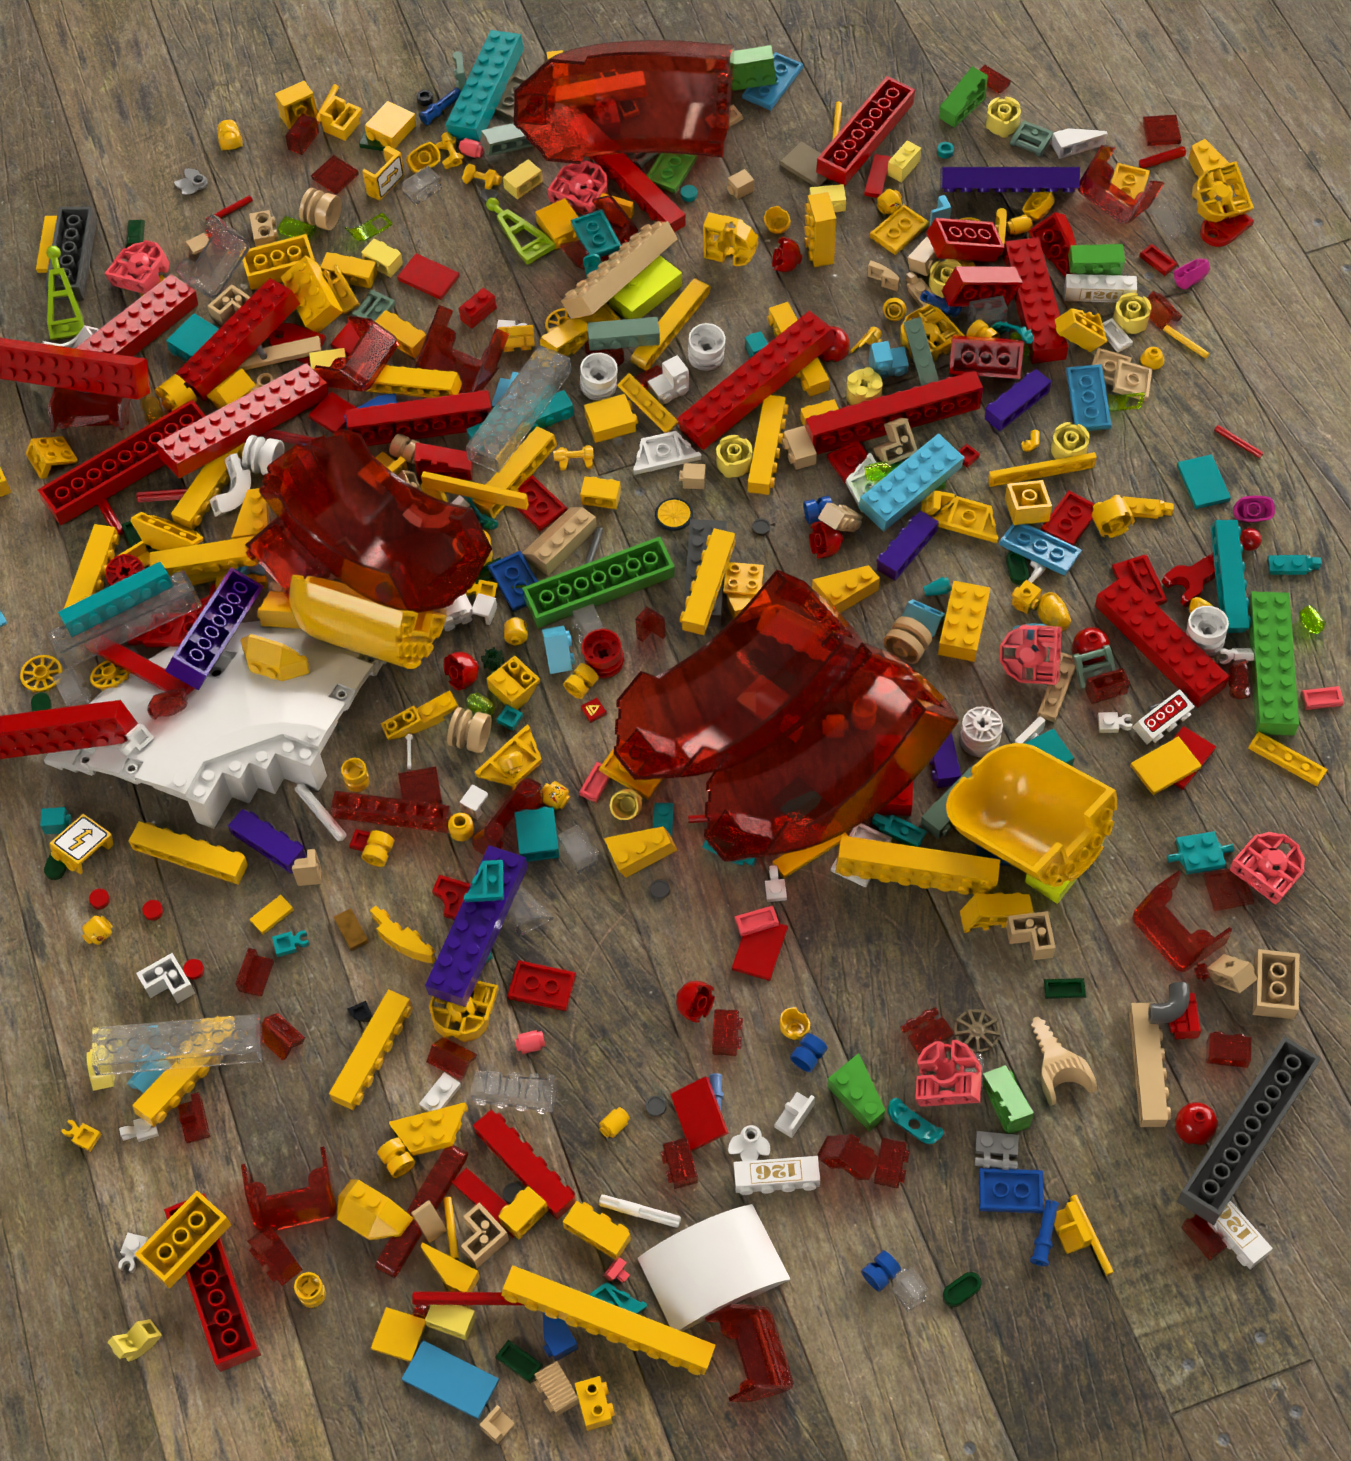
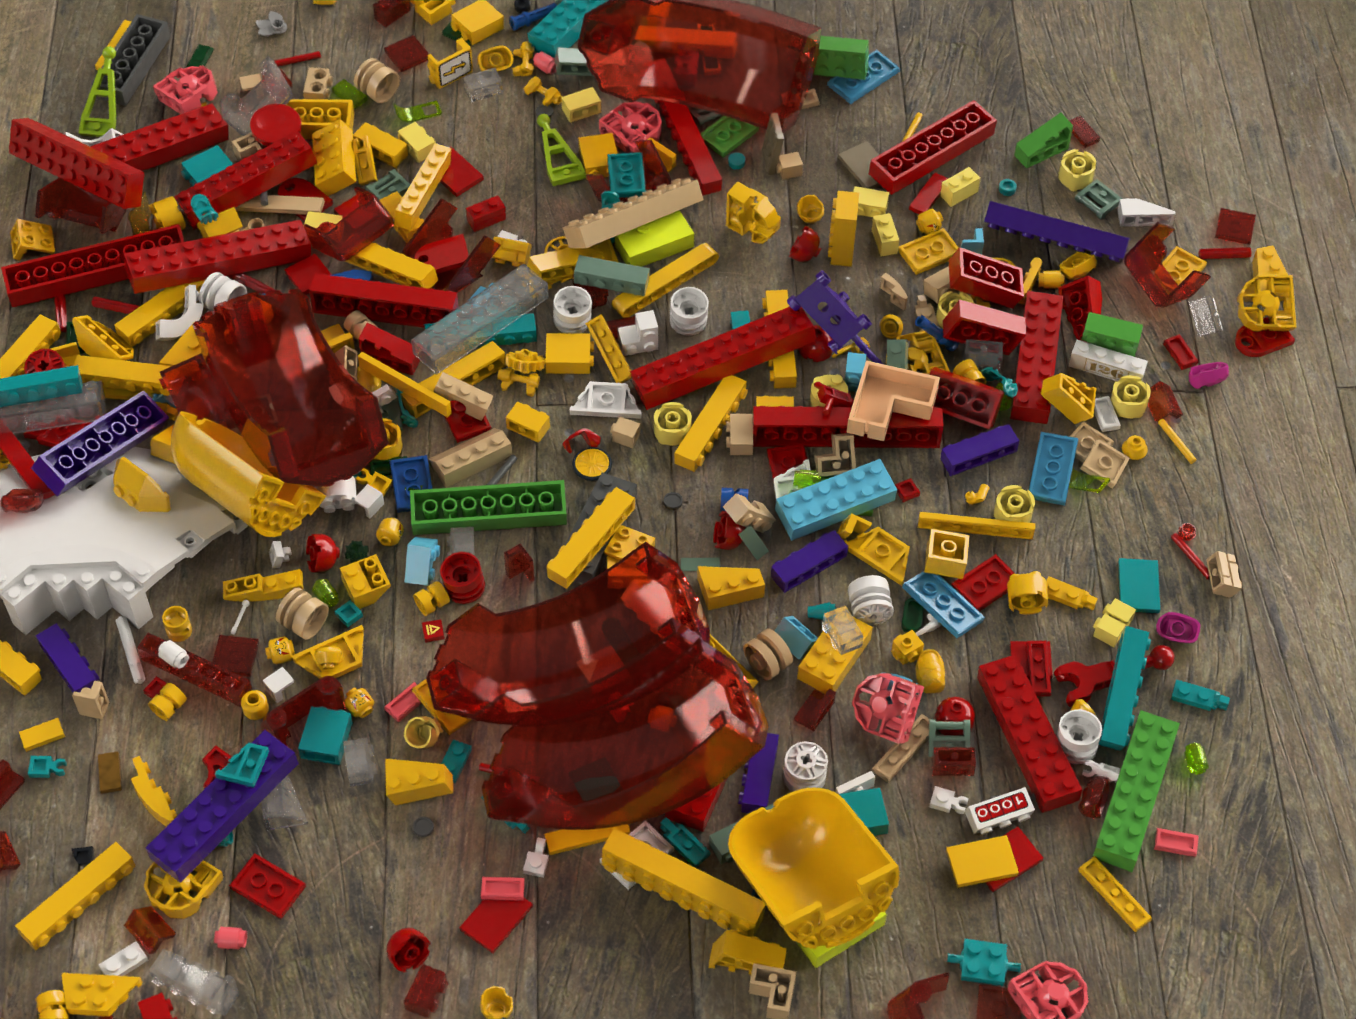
camera: 15 degrees right, 5 degrees down
(209, 376) = (201, 205): none -> teal piece
(243, 277) = (274, 123): none -> red piece
(369, 803) = (173, 654): none -> white brick
(410, 299) = (422, 187): none -> yellow brick
(421, 683) = (279, 554): none -> white tile
(457, 356) = (445, 253): none -> red tile
(461, 770) = (280, 650): none -> yellow head
(545, 485) = (474, 399): none -> tan arch
(574, 436) = (525, 361): none -> yellow gear
(663, 490) = (590, 437): none -> red piece
(720, 167) = (772, 143): none -> dark tan tile
(812, 574) = (691, 564): none -> sand green sticker
(842, 306) = (847, 322): none -> dark purple piece
(853, 543) = (753, 542): none -> sand green sticker
(854, 225) = (885, 234): none -> light yellow brick
(875, 389) = (832, 397): none -> red piece
(923, 369) = (890, 390): none -> light nougat piece
(965, 676) = (815, 709): none -> clear red panel
(968, 598) = (843, 630): none -> clear brick
(978, 563) = (870, 599): none -> white wheel
(1196, 520) = (1114, 620): none -> light yellow piece
(1227, 421) = (1187, 531): none -> clear red plate
(1274, 449) = (1224, 574): none -> tan brick

